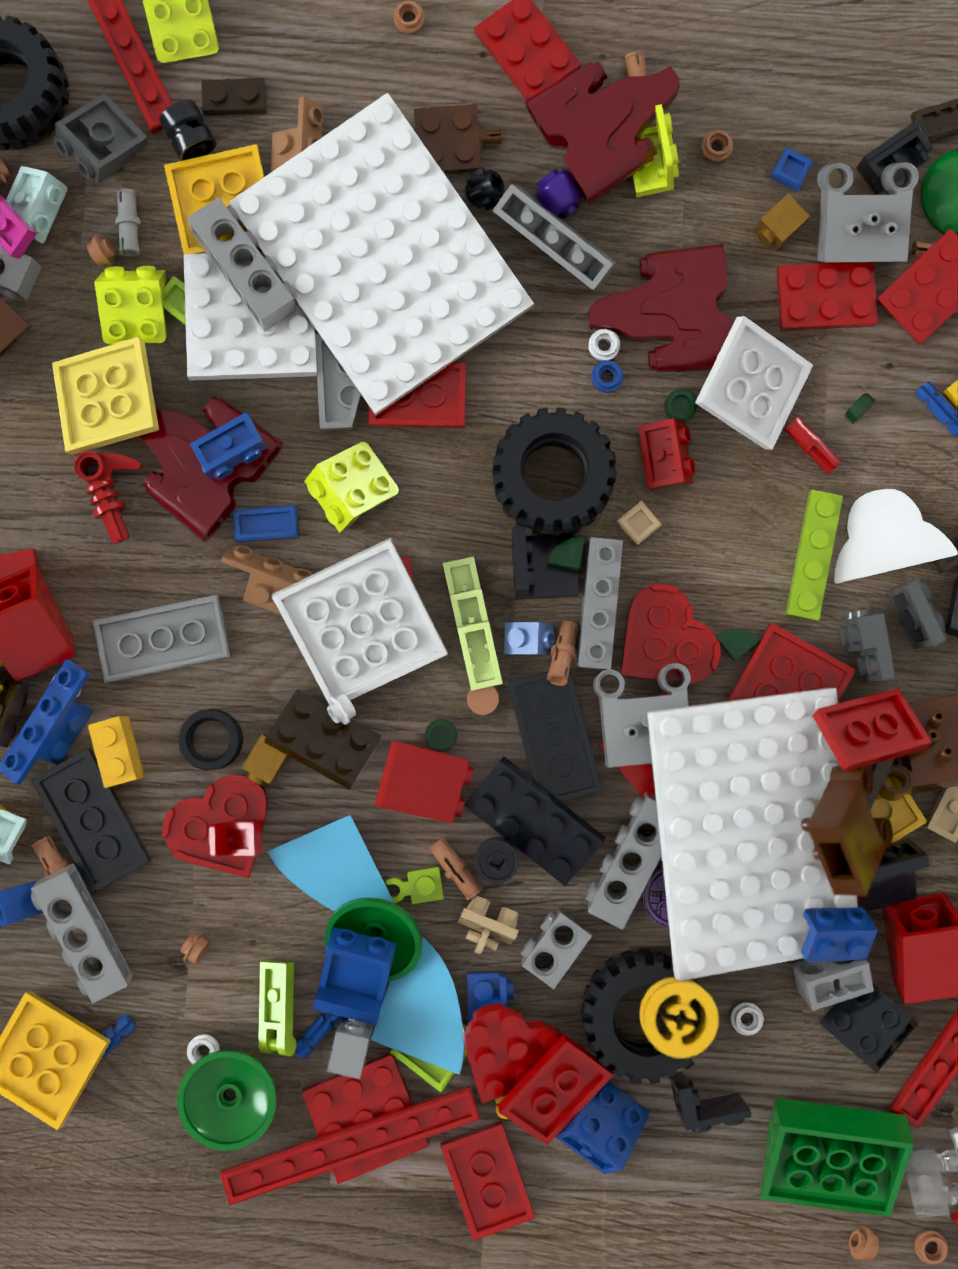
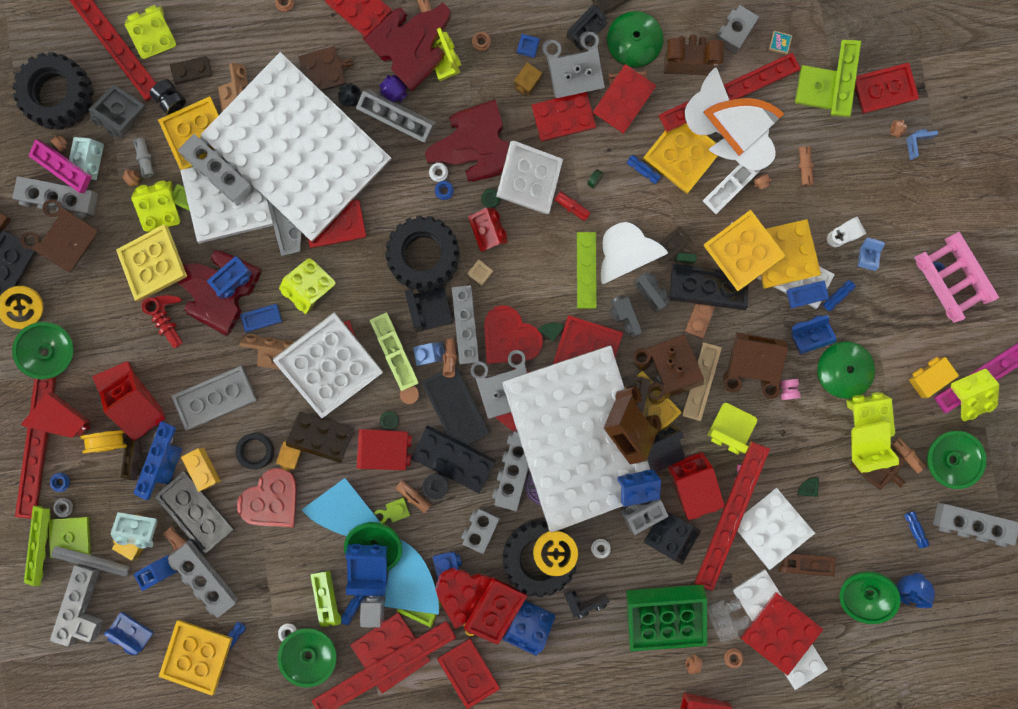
camera: 10 degrees left, 0 degrees up
(194, 948) = (270, 574): nougat plate -> none
(235, 839) = (280, 505): red bracket -> none
(341, 709) = (326, 417): white plate -> none
(475, 918) = (430, 523): tan hips -> none
(567, 554) = (441, 300): dark green tile -> none
(871, 729) = (634, 365): red plate -> none

